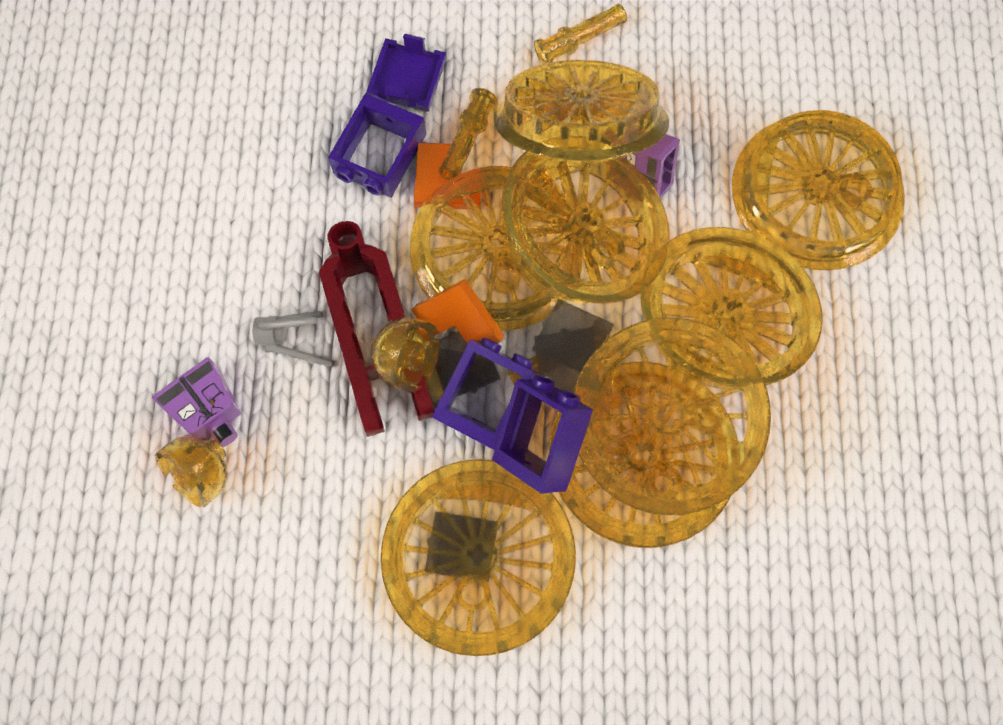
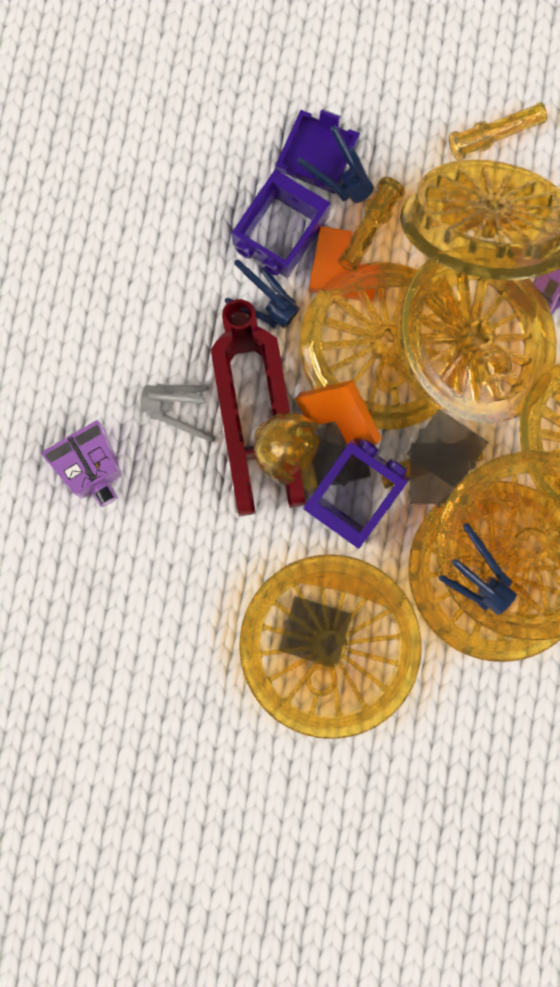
camera: 10 degrees right, 10 degrees up
(195, 467) = (76, 525): clear yellow cylinder -> none
(387, 225) = (281, 307): none -> dark blue plant
(446, 95) = (354, 181): none -> dark blue plant
(518, 427) = (384, 566): dark purple window -> none
(638, 469) = (492, 593): none -> dark blue plant

